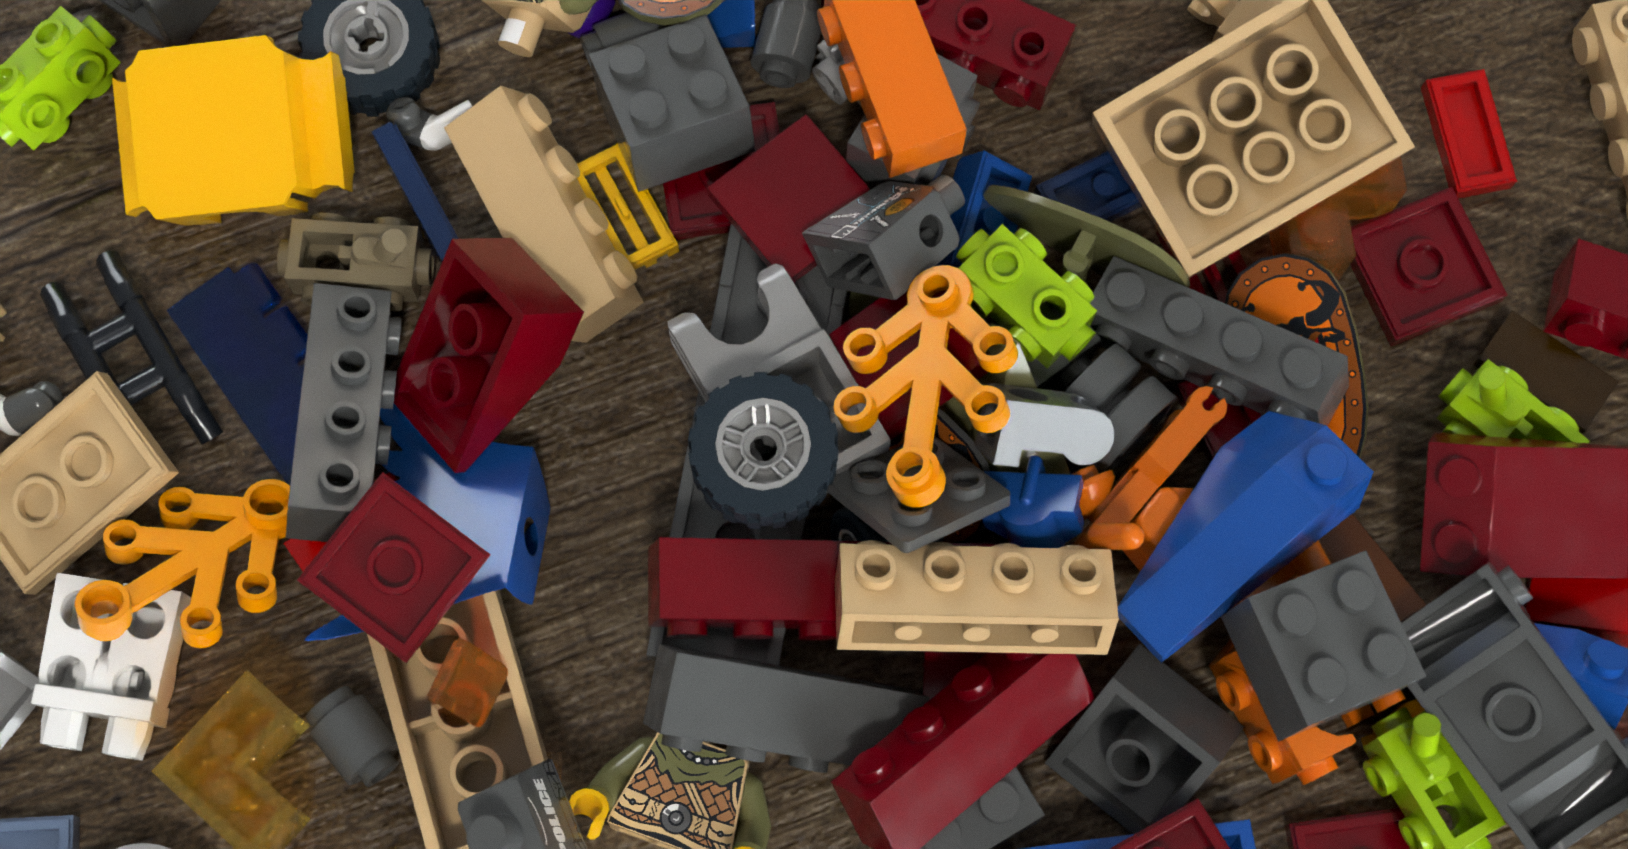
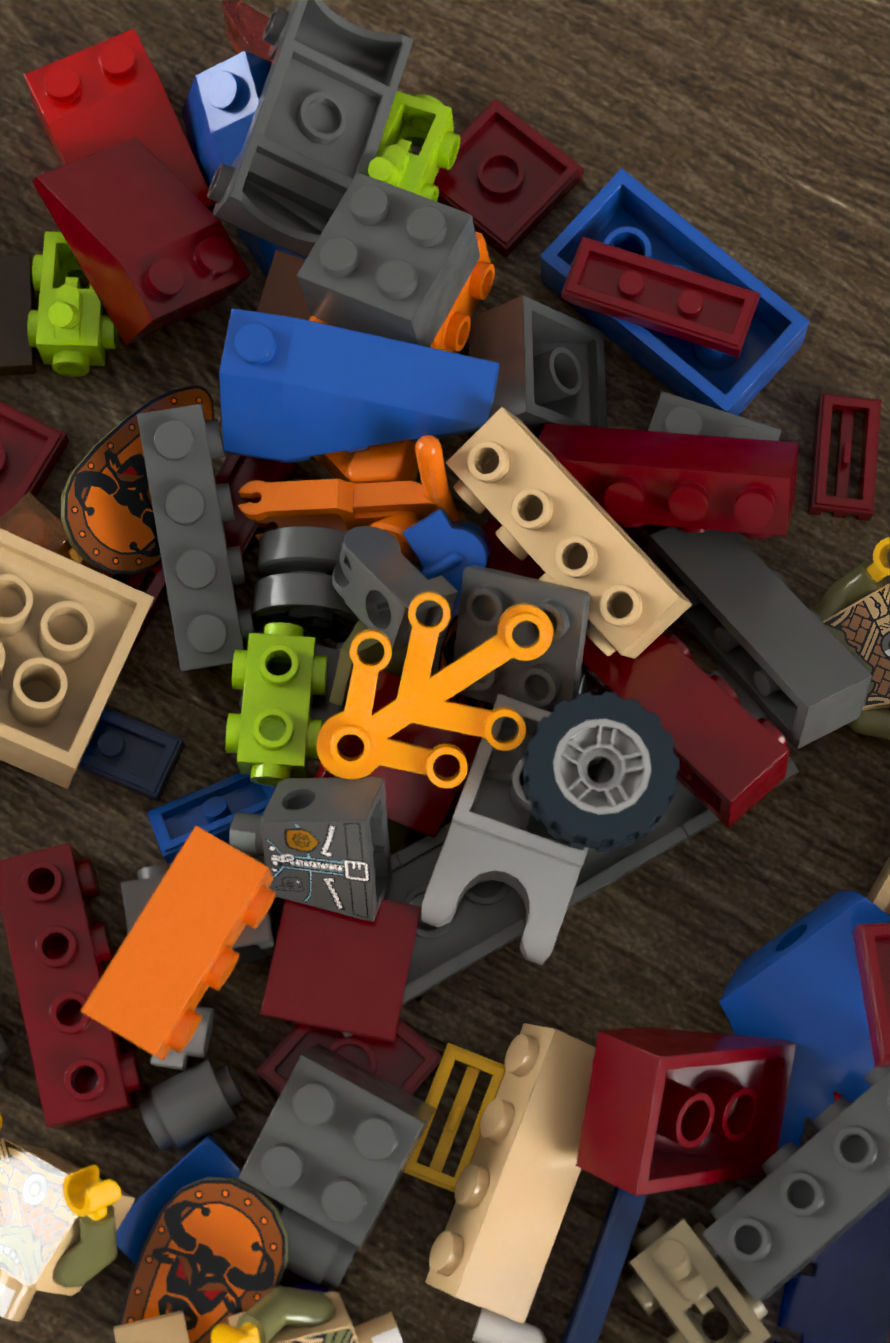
camera: 130 degrees left, 0 degrees up
(1080, 236) = (184, 704): olive shield -> none

